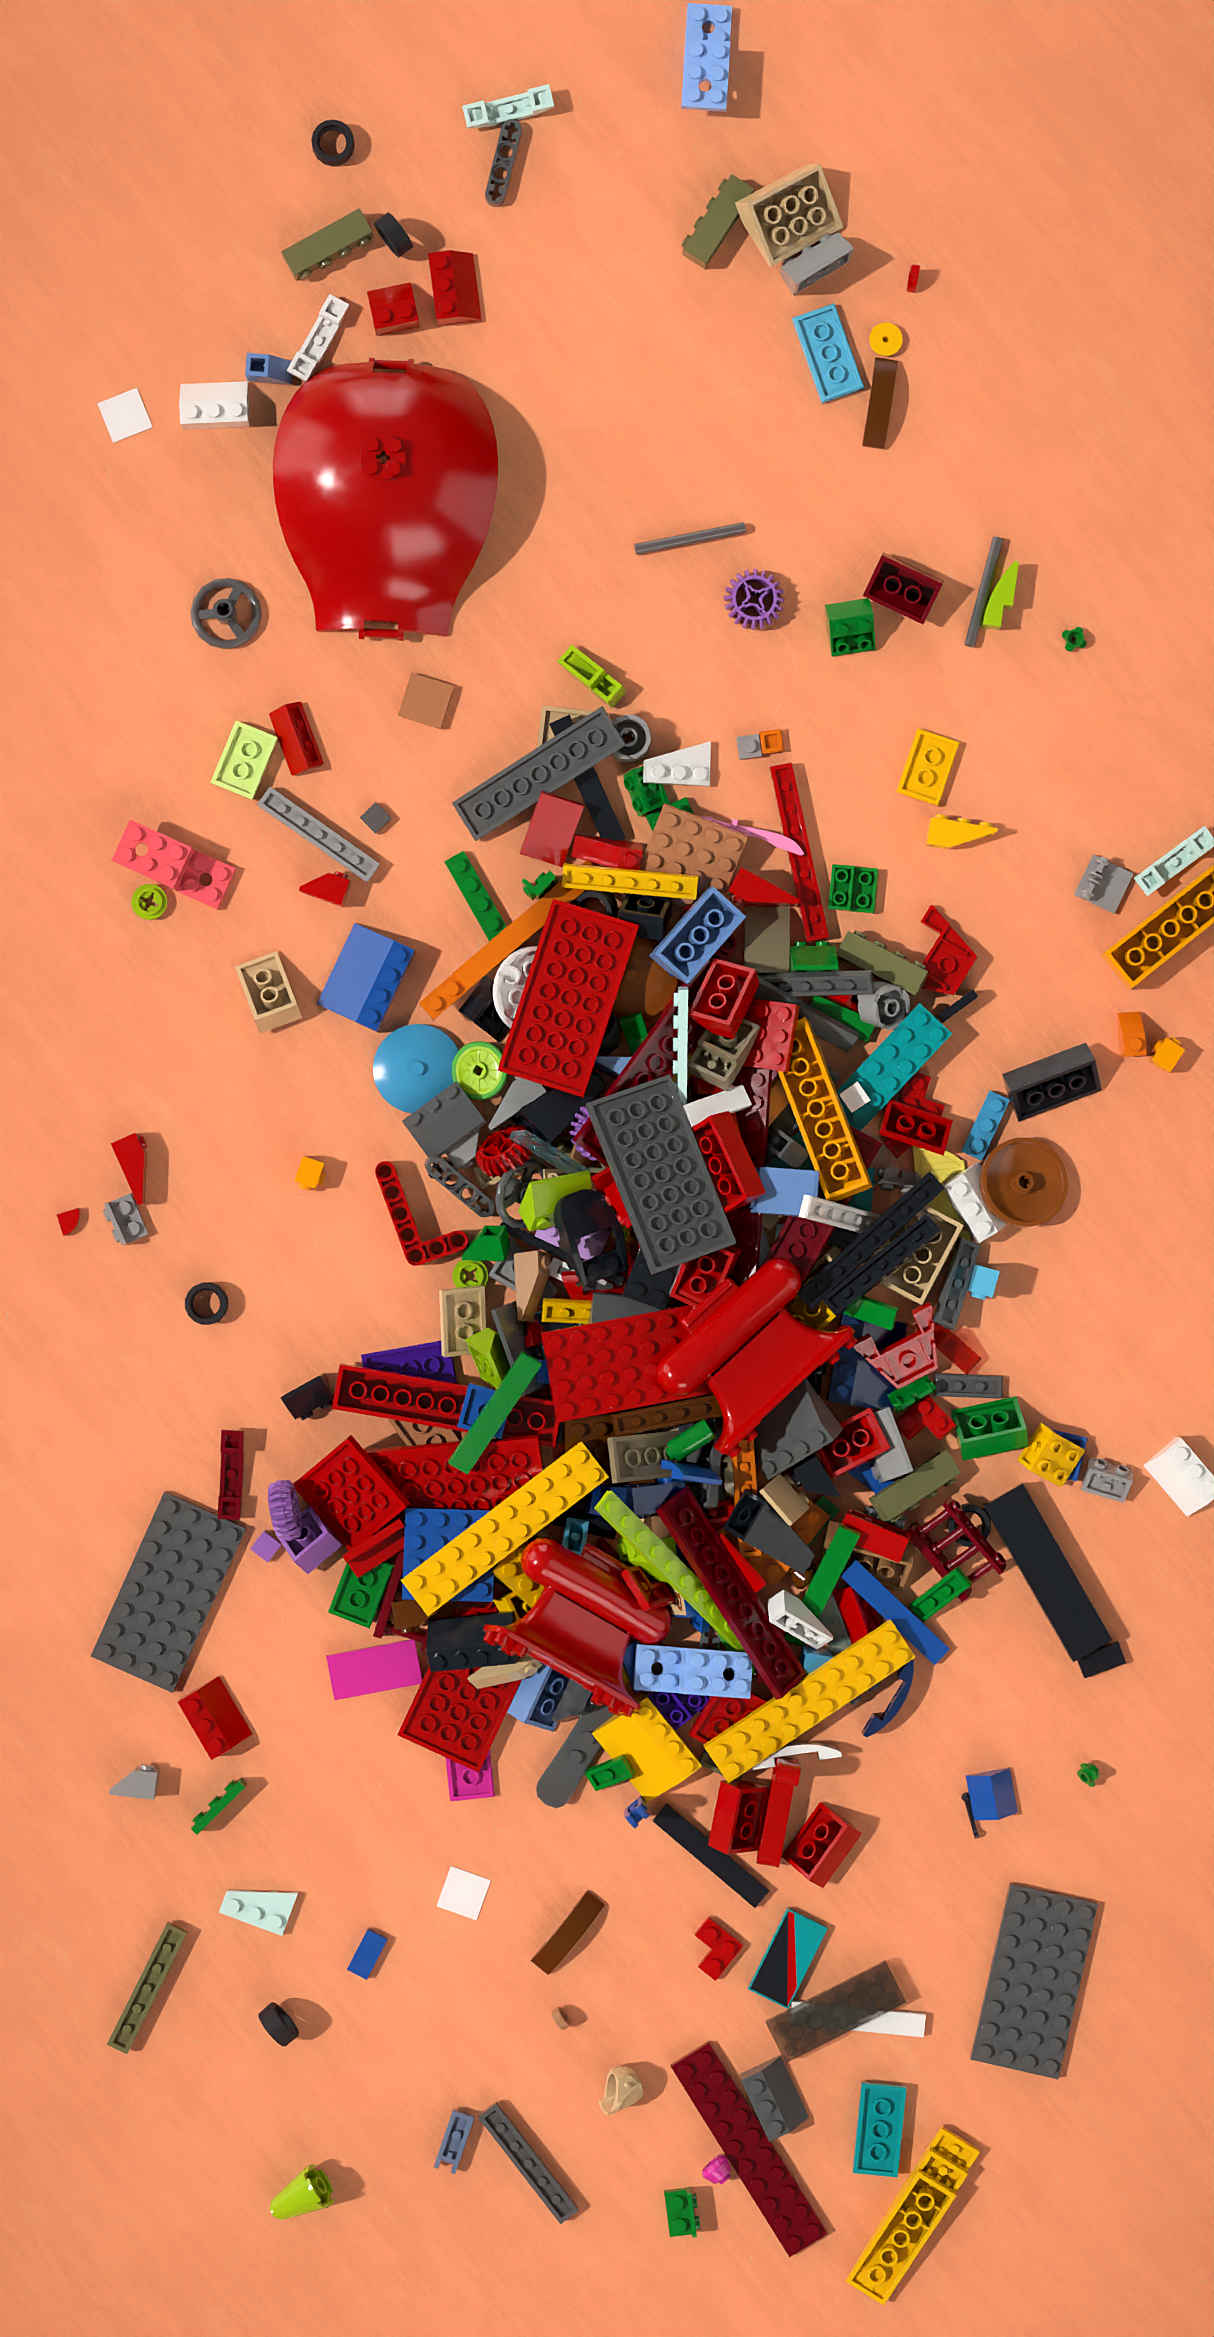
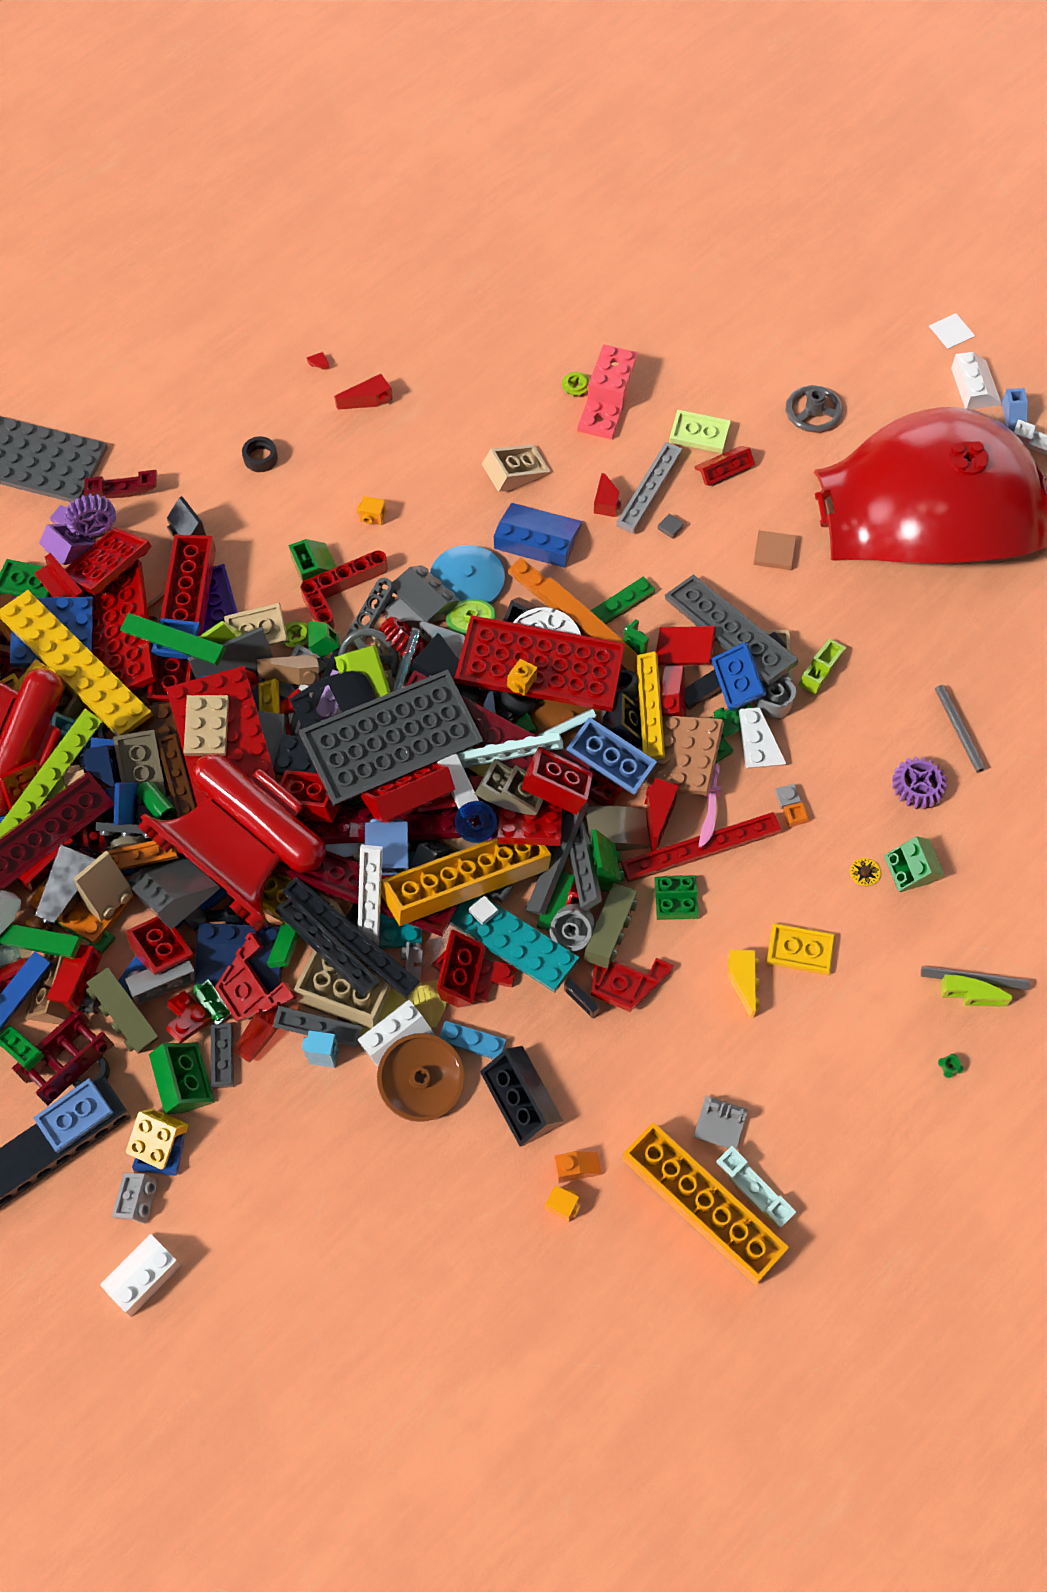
camera: 90 degrees right, 25 degrees down
(125, 1219) = (320, 394): light grey bracket -> none
(375, 1247) = (311, 558): none -> green slope
(596, 1021) = (522, 677): none -> light orange brick
(609, 776) = (738, 676): none -> blue tile
(613, 1379) = (206, 725): none -> tan plate
(648, 979) = (573, 722): none -> light aqua tile
(765, 1083) = (471, 811): none -> clear blue brick
(812, 1476) = (125, 915): black slope -> none
(847, 680) = (865, 872): none -> piece
(903, 588) = (961, 902): dark red slope -> none
(1023, 1537) = (73, 1116): none -> medium blue tile

